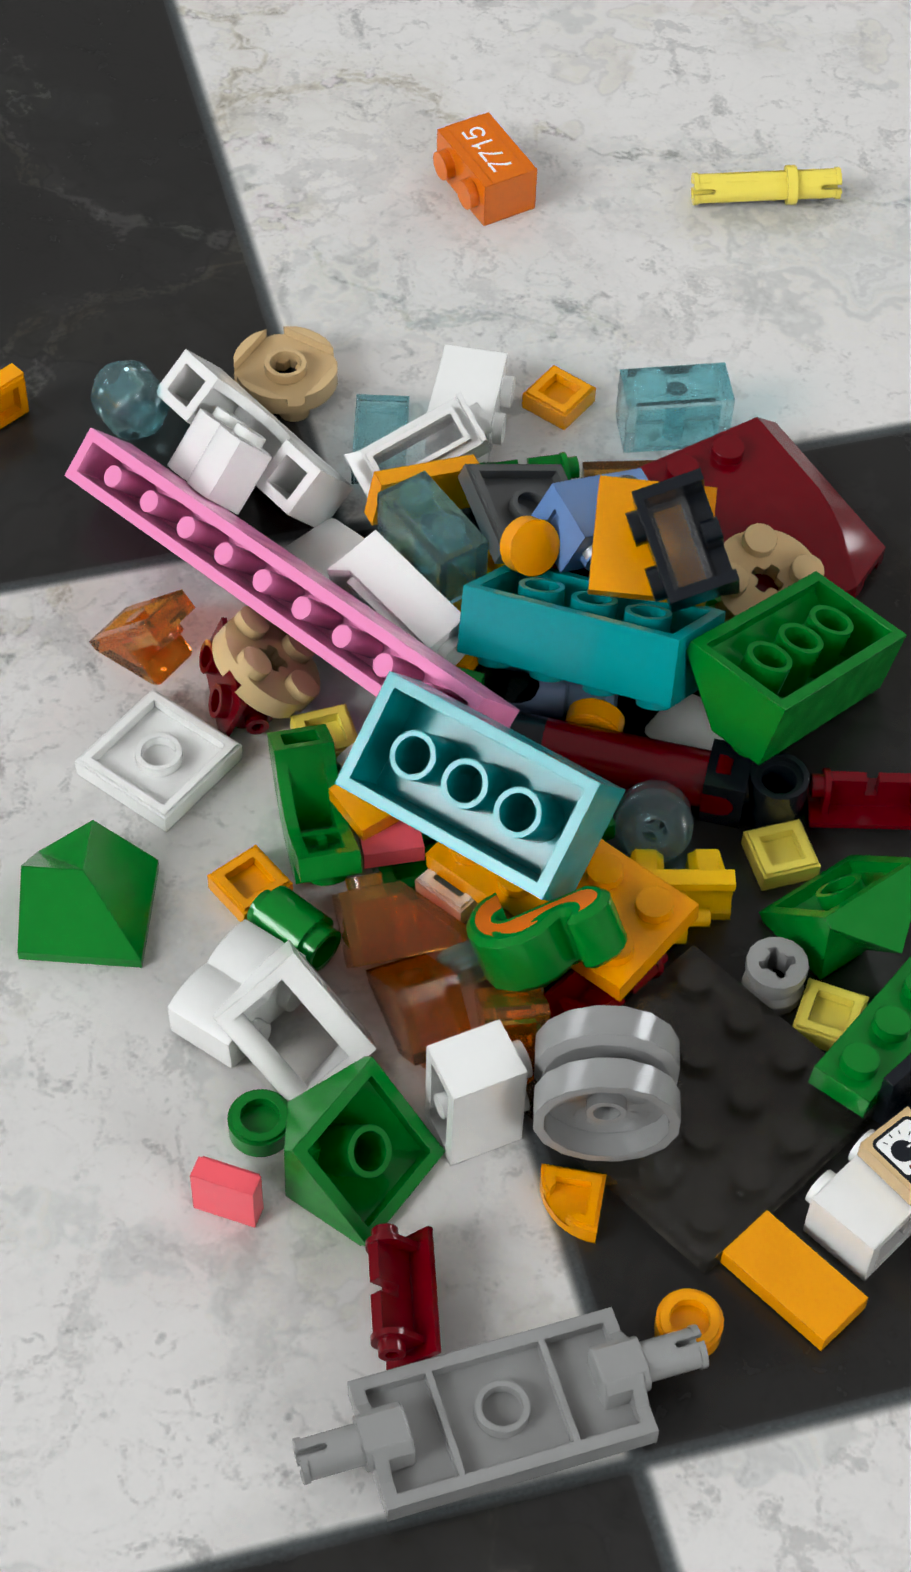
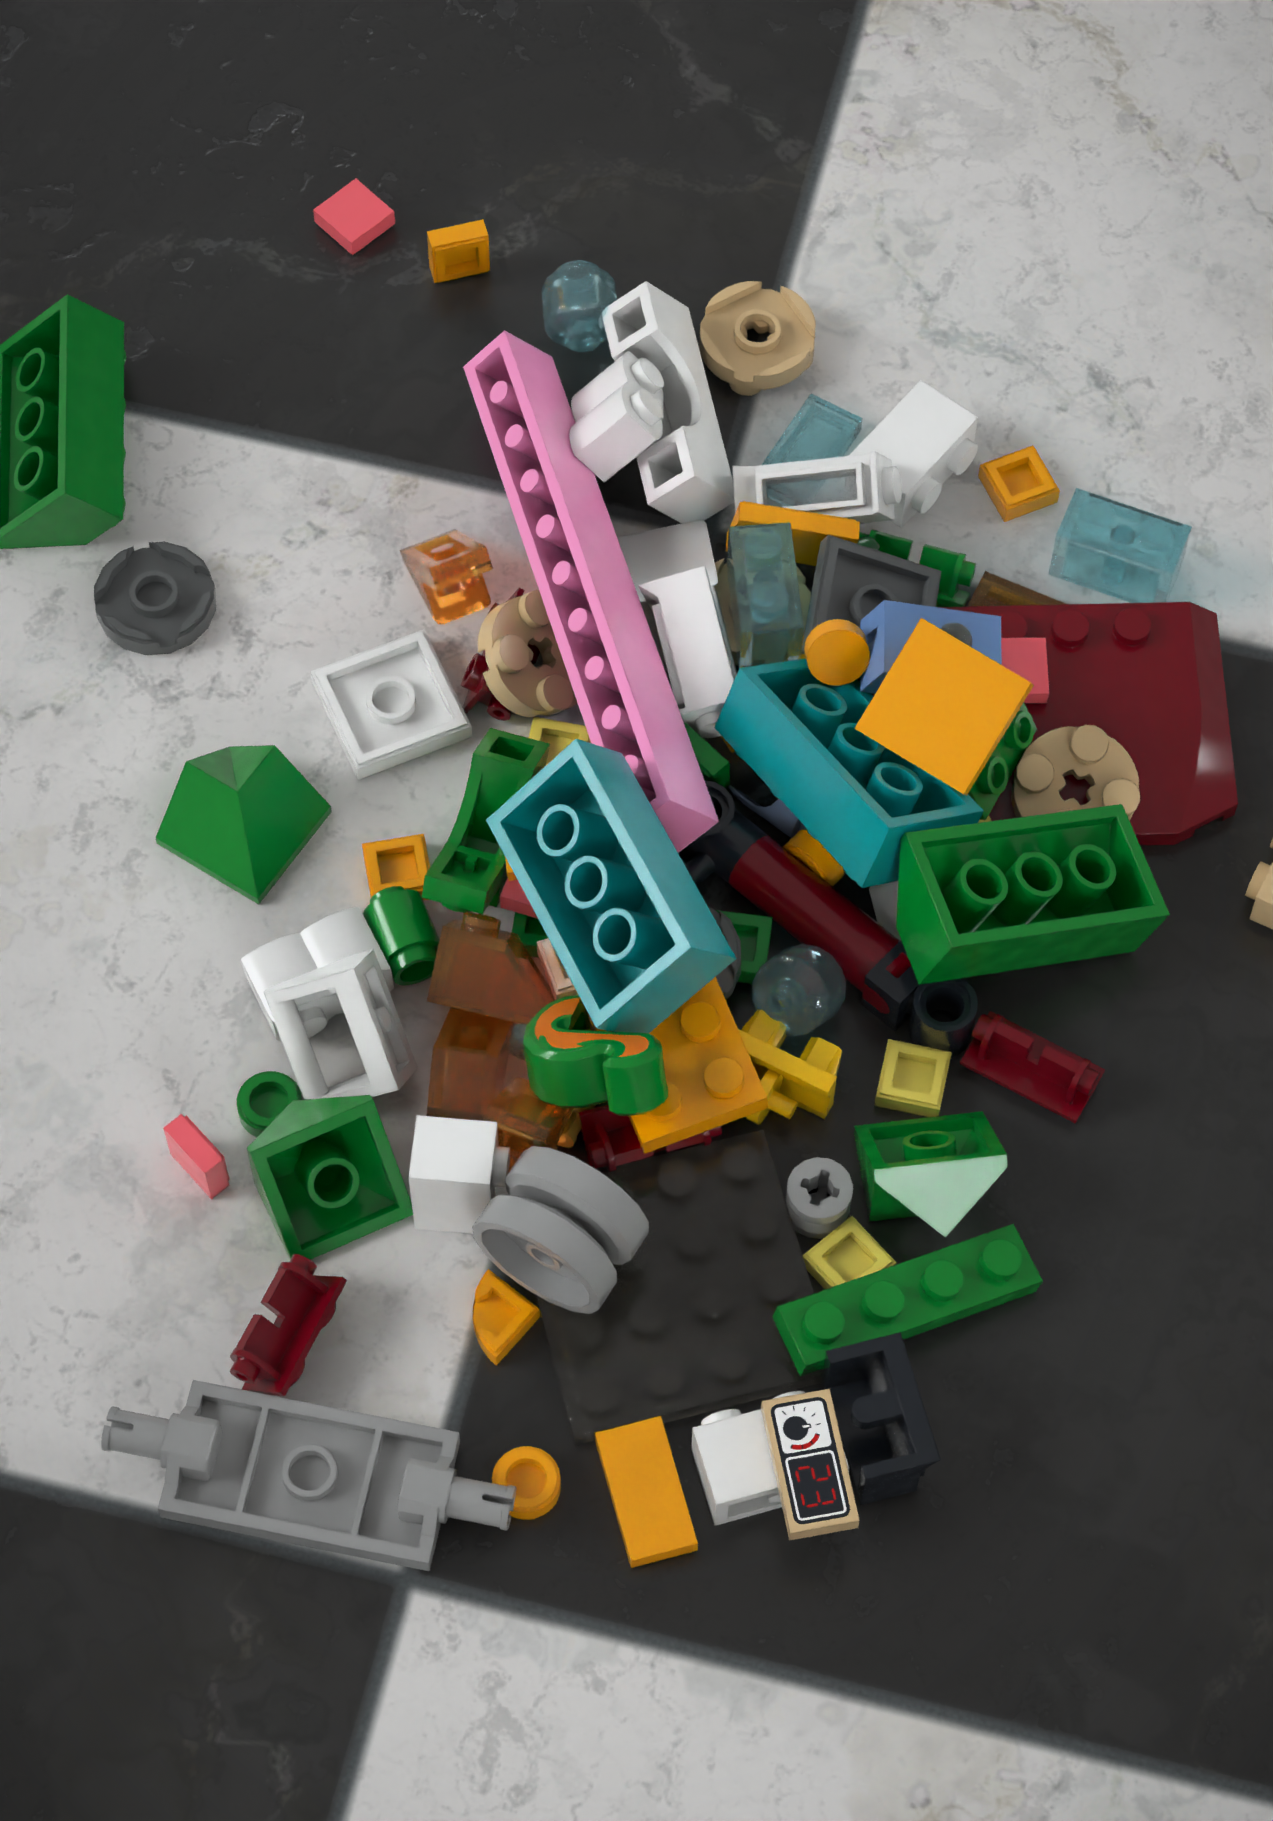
camera: 30 degrees right, 10 degrees up
(485, 169) = (1106, 183): orange brick -> none
(682, 542) = (958, 727): black window -> none

